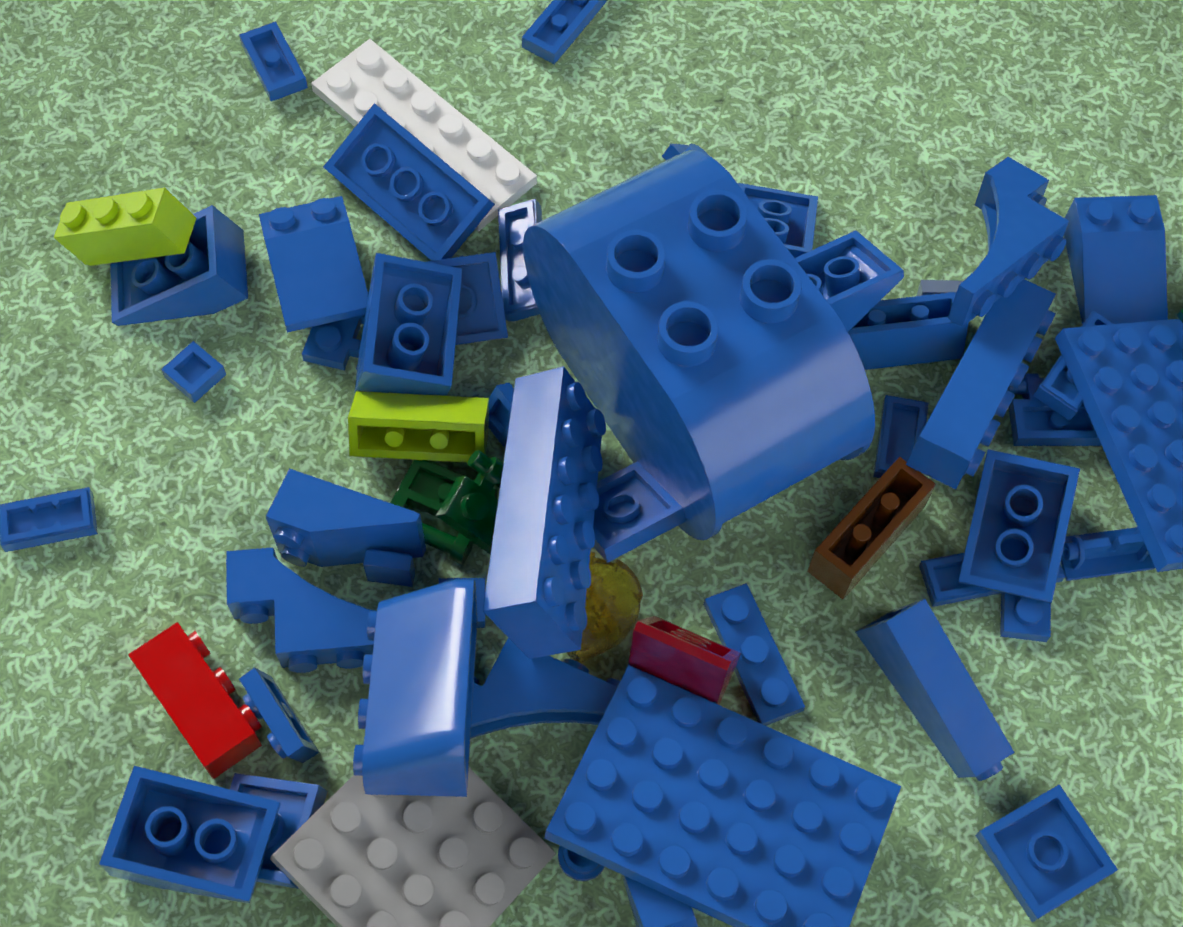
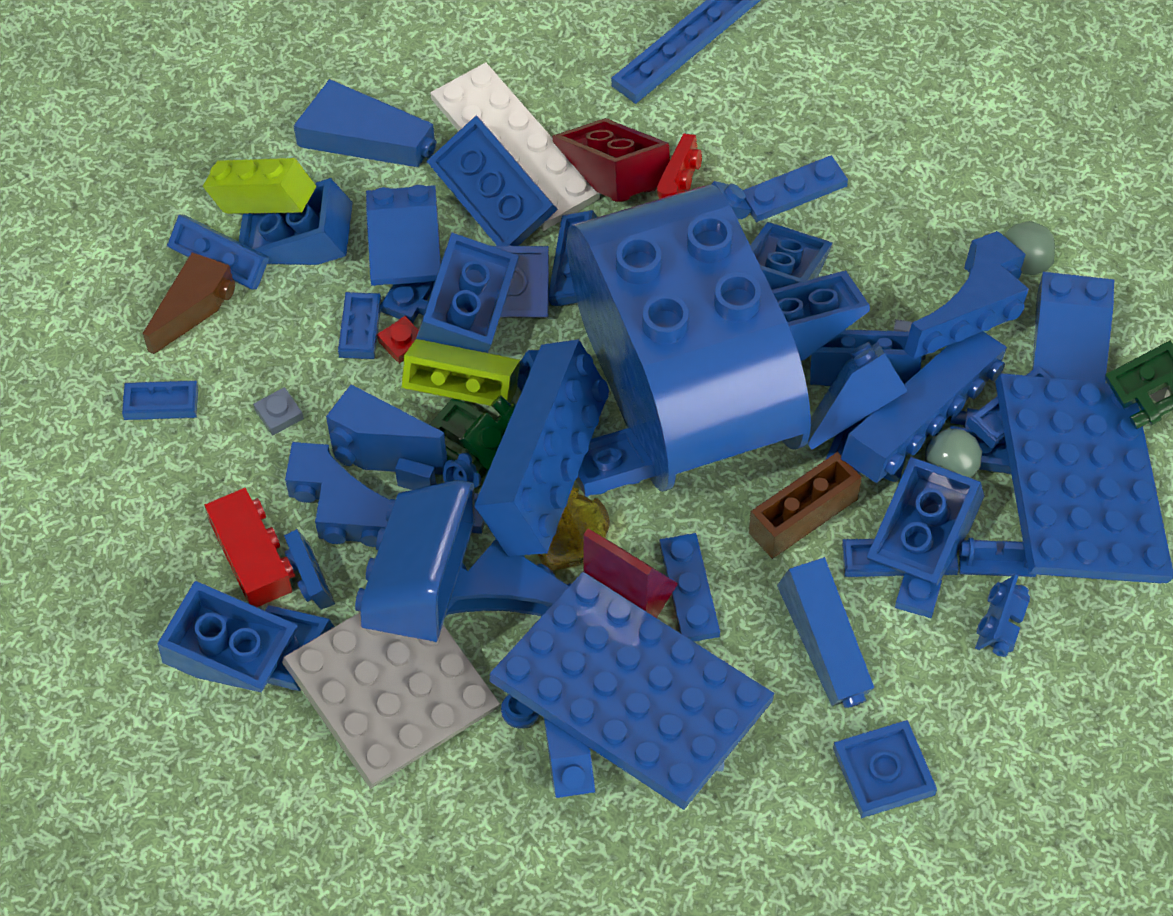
camera: 15 degrees right, 5 degrees down
(64, 382) = (190, 300): none -> reddish brown slope
(87, 316) = (245, 263): none -> blue tile
(193, 371) = (292, 306): blue plate -> none
(200, 509) = (278, 411): none -> sand blue plate
(240, 136) = (363, 127): none -> blue slope
(273, 61) = (403, 70): blue plate -> none
(281, 383) = (359, 325): none -> blue plate
(333, 392) = (398, 338): none -> red plate
(445, 555) = (461, 469): none -> blue plate
(549, 132) = (615, 158): none -> dark red slope
(627, 141) = (681, 167): none -> red plate
(763, 136) = (795, 188): none -> blue plate
(911, 376) = (858, 390): none -> blue slope
(1029, 433) = (955, 451): none -> sand green hair
(1050, 162) = (1036, 243): none -> sand green hair
(1130, 611) = (1006, 602): none -> blue hinge

